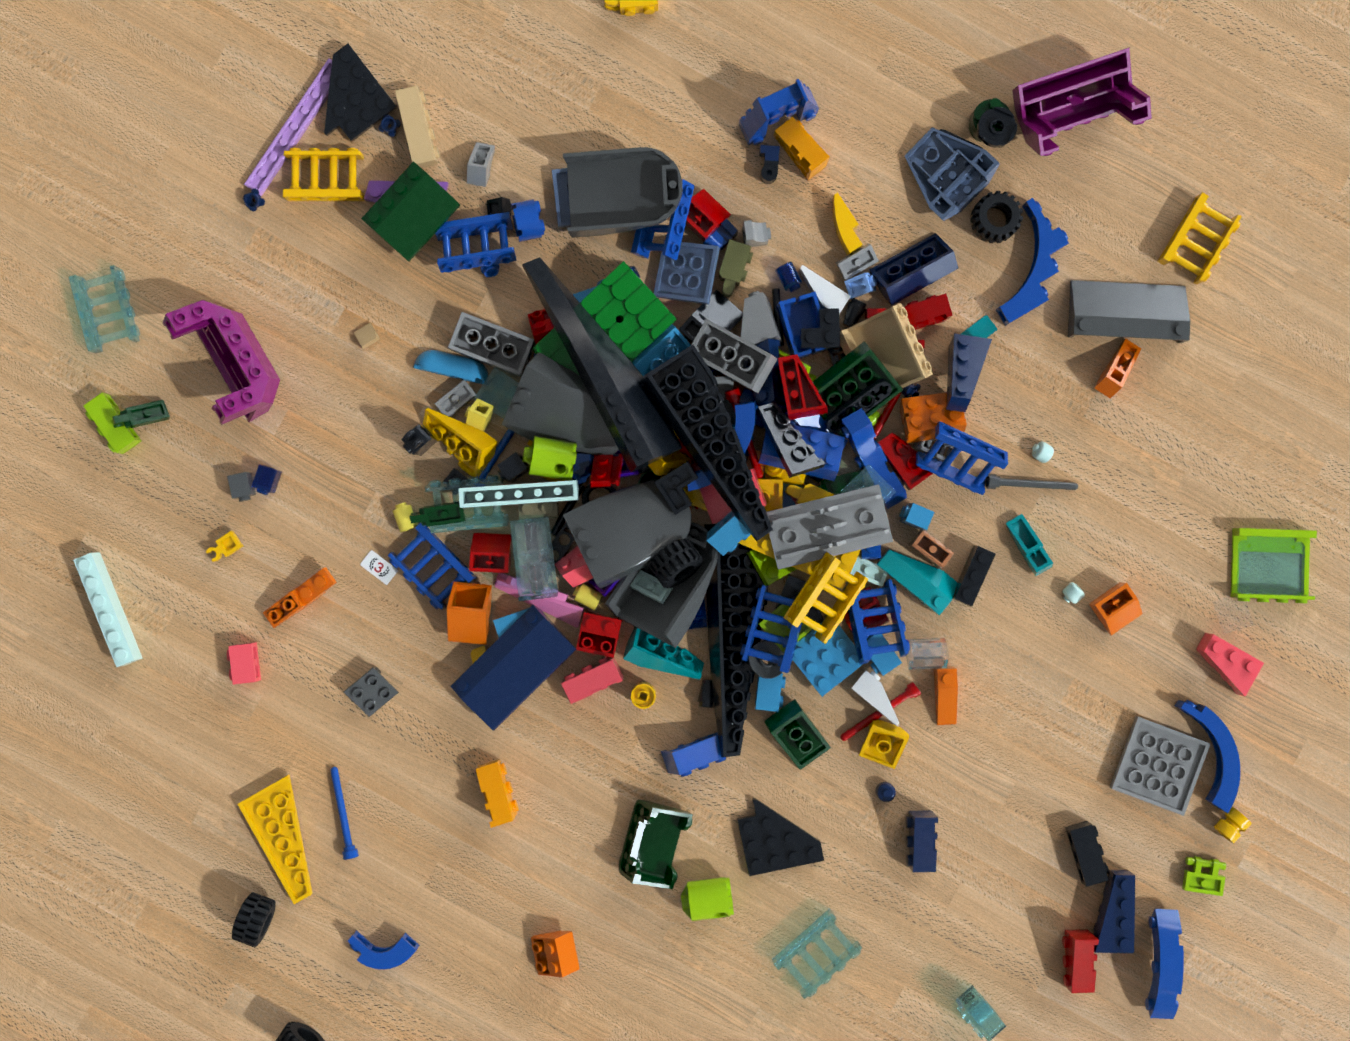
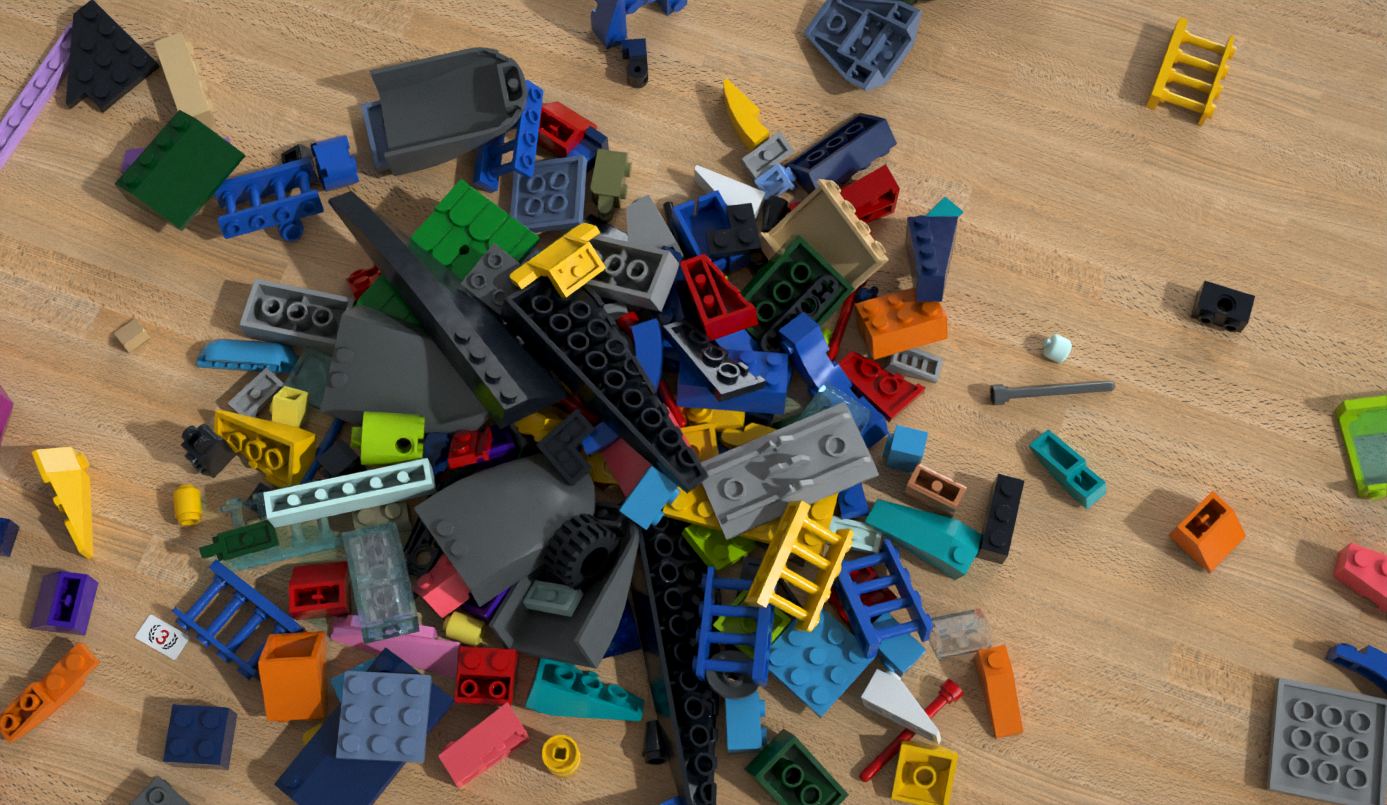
camera: 10 degrees left, 20 degrees down
(312, 536) = (64, 603): none -> dark purple slope
(314, 192) = (66, 173): yellow fence -> none
(318, 444) = (68, 478): none -> yellow wedge
(387, 119) = (150, 80): dark blue plate -> none
(401, 476) = (187, 505): none -> yellow brick
(402, 517) = (190, 557): light yellow brick -> none
(402, 644) = (200, 737): none -> dark blue brick
(480, 164) = (268, 112): light grey arch -> none
(528, 655) = (384, 717): none -> sand blue plate
(642, 351) = (491, 278): none -> dark grey hinge
(692, 347) = (566, 262): none -> yellow plate
(755, 233) = (630, 139): light grey arch -> none
(789, 277) = (681, 184): clear blue brick -> none
(801, 148) = (674, 39): light orange wedge -> none
(961, 442) = (945, 339): blue fence -> none
(1007, 206) = (935, 64): black tyre -> none
(1043, 266) = (1002, 102): blue arch -> none
(1073, 593) = (1143, 523): light aqua piece -> none
(1118, 369) = (1129, 234): orange slope -> none
(1128, 310) = (1125, 163): dark grey slope -> none
(1183, 440) = (1236, 303): none -> black brick

